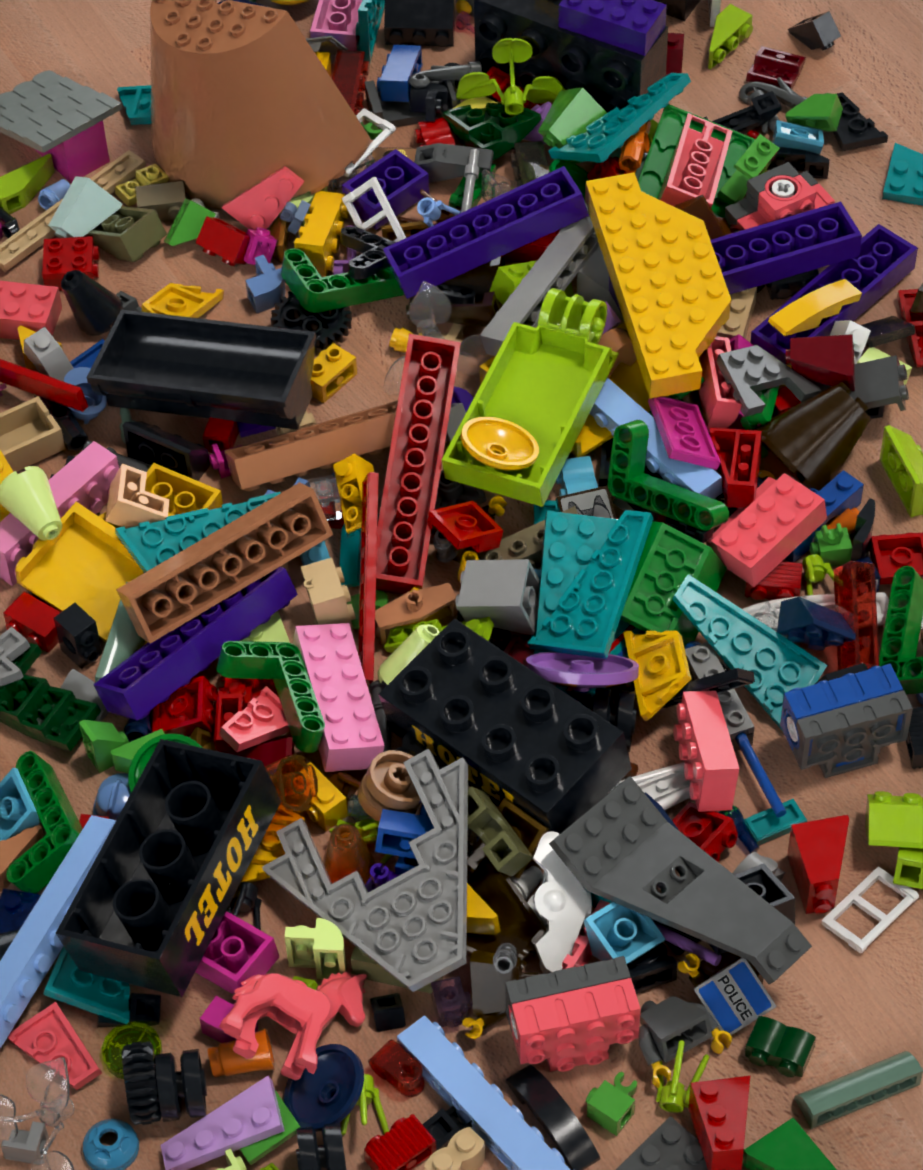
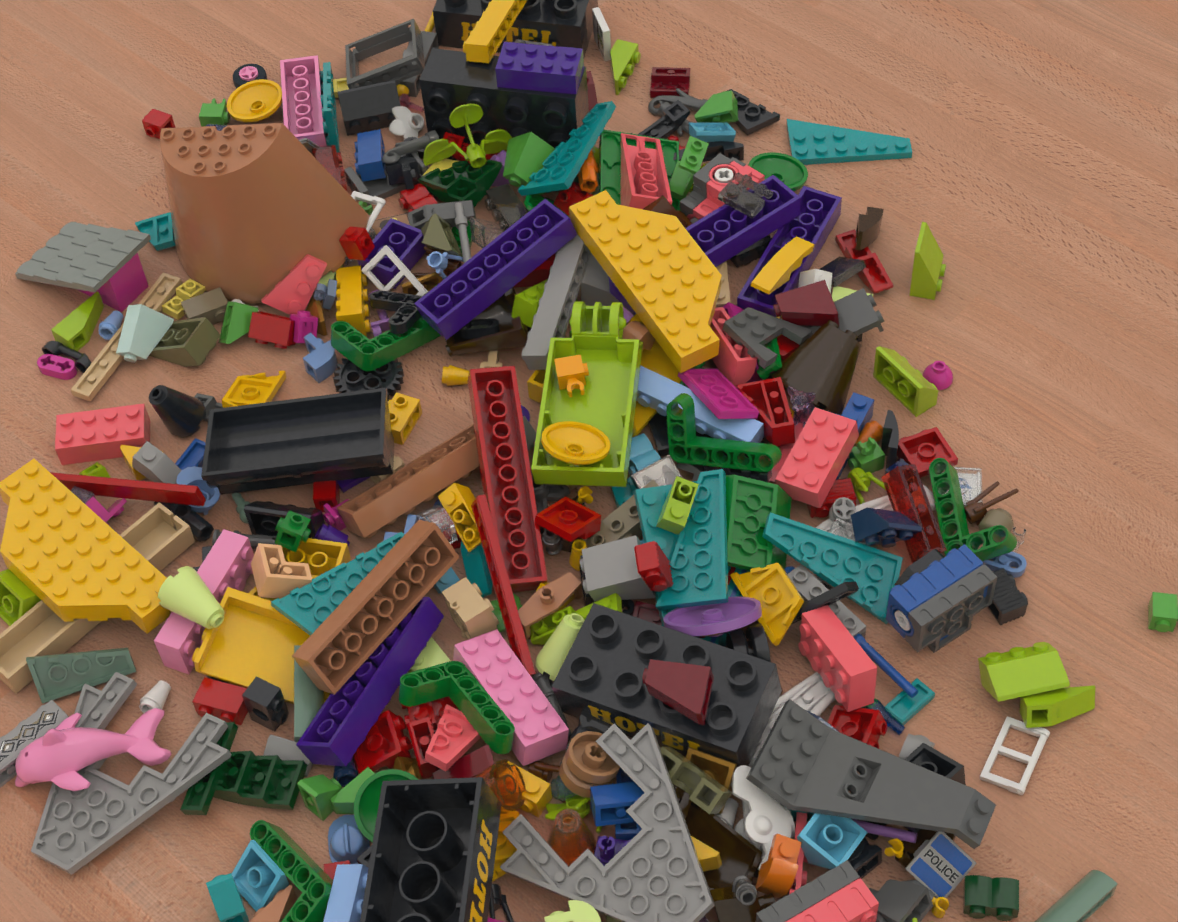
camera: 15 degrees left, 0 degrees up
(69, 254) = (142, 376): red brick -> none
(165, 461) = (292, 531): none -> green brick
(210, 477) = (330, 533): none -> dark purple brick
(345, 167) = (357, 243): none -> red brick
(426, 310) = (470, 345): clear plant -> none
(442, 182) = (440, 236): none -> olive slope
(450, 45) = (403, 123): none -> white plate
(509, 727) = (680, 687): none -> dark red slope
(524, 367) = (571, 373): none -> light orange brick
(535, 597) = (653, 566): none -> red brick
(555, 944) = (780, 869): none -> orange brick
(586, 539) = (677, 505): none -> lime slope
(772, 465) = (801, 405): none -> animal
(779, 590) = (843, 505): none -> light grey wheel
(792, 221) = (742, 199): none -> clear smoke plate
(816, 31) = (691, 45): black slope -> none
(817, 859) = (962, 727): red slope -> none
(863, 199) = (784, 167): none -> green dish

